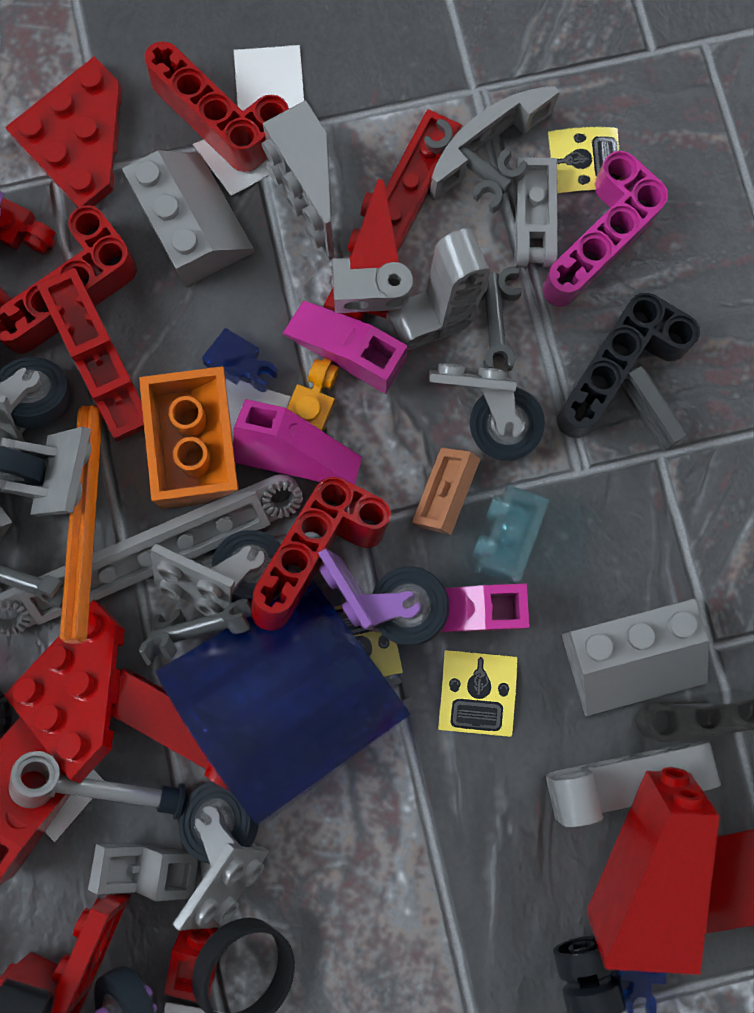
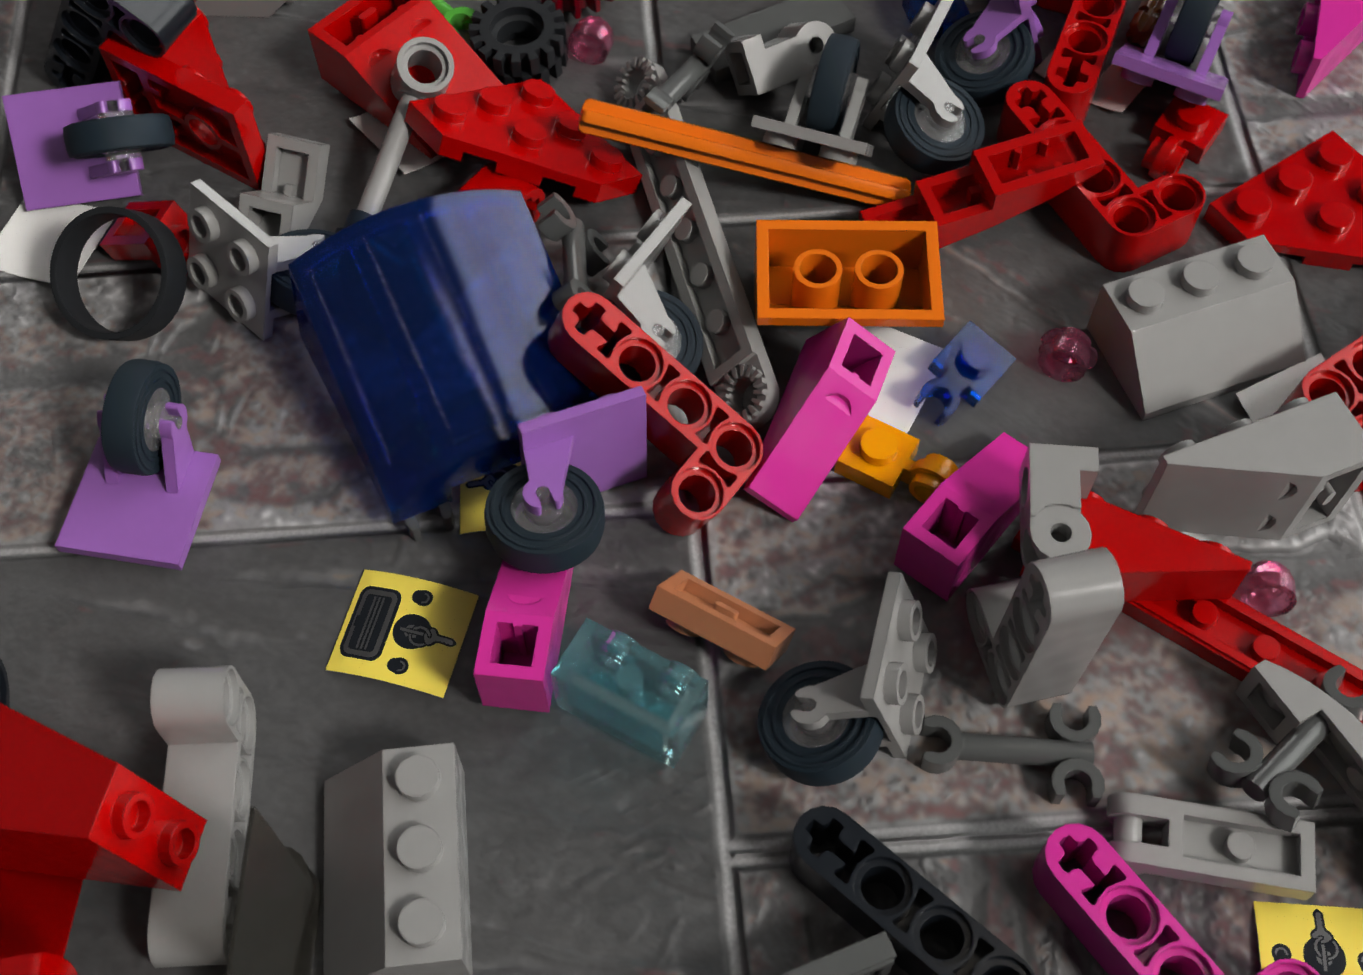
camera: 100 degrees right, 20 degrees down
(216, 296) = (1066, 354): none -> clear pink plate
(367, 176) = (1269, 588): none -> clear pink hinge
(407, 900) = (143, 476): none -> medium lavender plate

